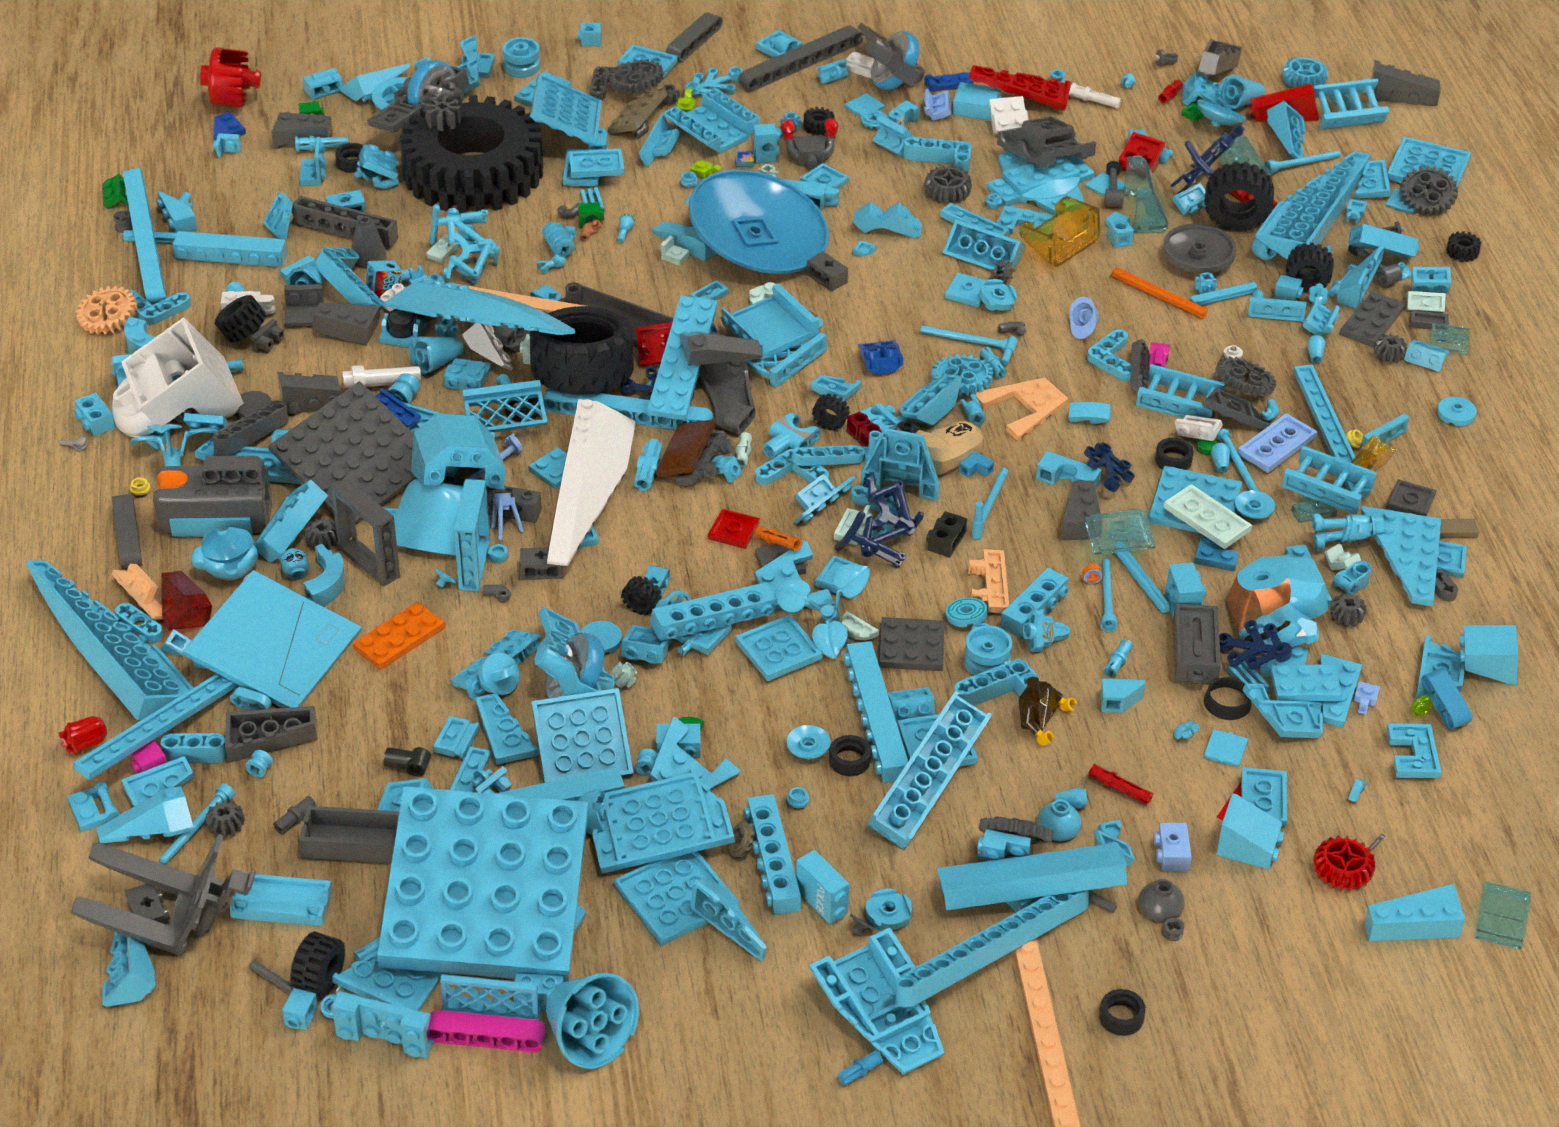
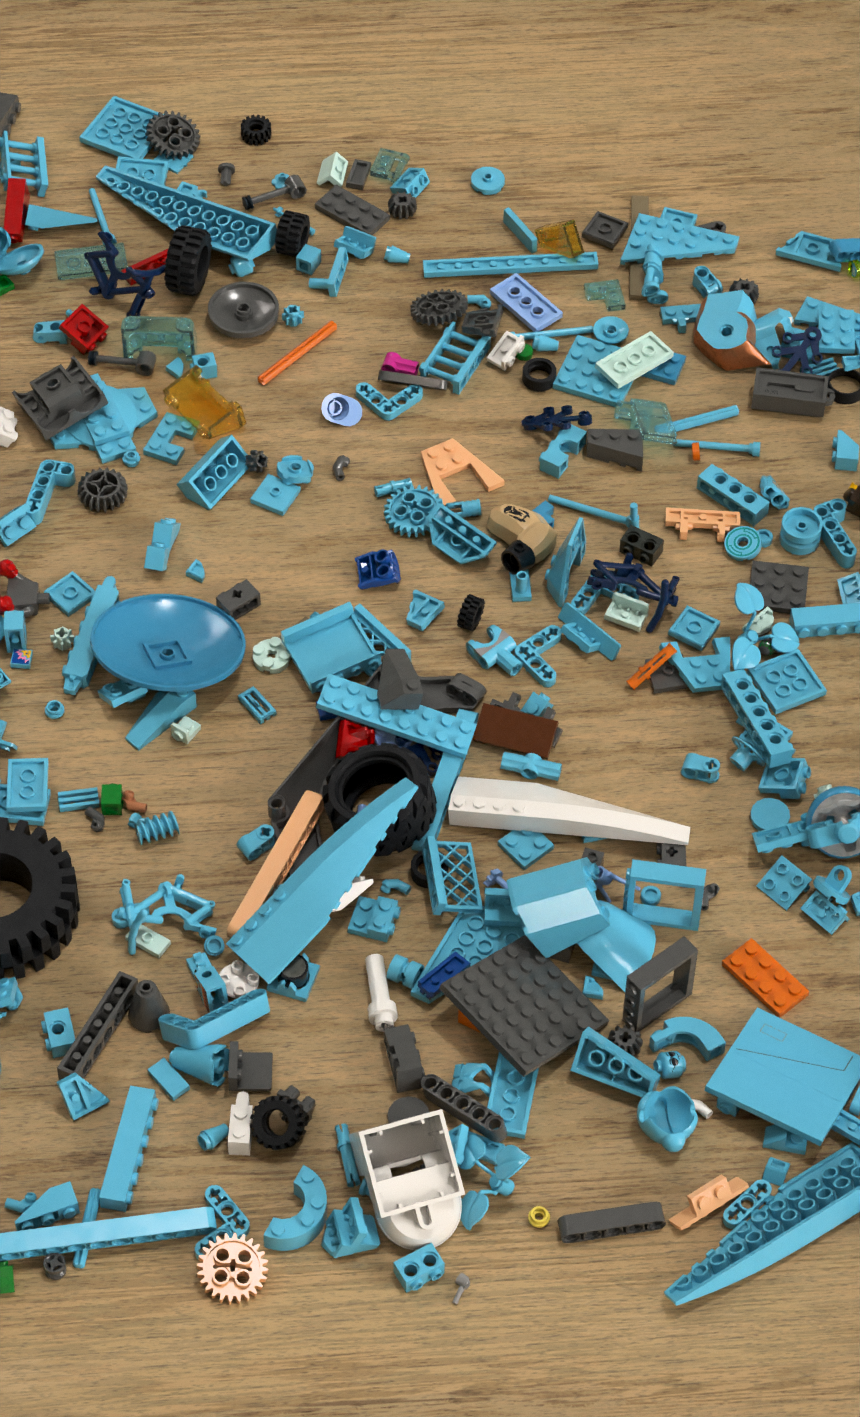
camera: 85 degrees left, 10 degrees up
(183, 602) = (731, 1155): clear red wedge -> none
(215, 495) = (587, 1130): dark grey piece -> none
(346, 321) = (286, 1022): dark grey wedge -> none
(434, 352) = (347, 942): medium azure cone -> none
(444, 578) = (690, 935): medium azure plant -> none
(557, 261) = (187, 833): medium azure arm -> none
(626, 223) = (129, 768): medium azure piece -> none
(633, 591) = (727, 775): black tyre -> none
(704, 169) = (37, 696): lime plate -> none
(733, 528) = (621, 706): red tile -> none
(743, 449) = (507, 689): light aqua pin -> none
(827, 455) = (526, 623): medium azure beam -> none
(872, 419) = (486, 582): hips -> none
(954, 212) = (168, 476): medium azure plate -> none
(1007, 345) = (366, 473): medium azure bar -> none
(1091, 411) = (476, 425): medium azure slope -> none
(1101, 183) = (114, 372): medium azure piece -> none
(1118, 658) = (799, 448): medium azure pin -> none
(1184, 585) = (731, 388): medium azure brick -> none
(1190, 200) = (161, 304): medium azure bracket -> none
(1225, 293) = (305, 306): medium azure axle -> none
(1233, 351) = (394, 314): white plate -> none
(1318, 293) = (317, 241): medium azure plant -> none
(1325, 492) = (601, 283): medium azure fence -> none
(1339, 559) = (684, 285): light aqua bracket -> none
(1354, 438) = (524, 250): light yellow plate -> none
(1357, 282) = (315, 203): medium azure wedge -> none
(1366, 695) = (842, 300): light blue plate -> none
(1372, 238) = (258, 178): medium azure slope -> none
(1431, 279) = (312, 158): medium azure brick -> none
(1491, 651) = (804, 210): medium azure slope -> none

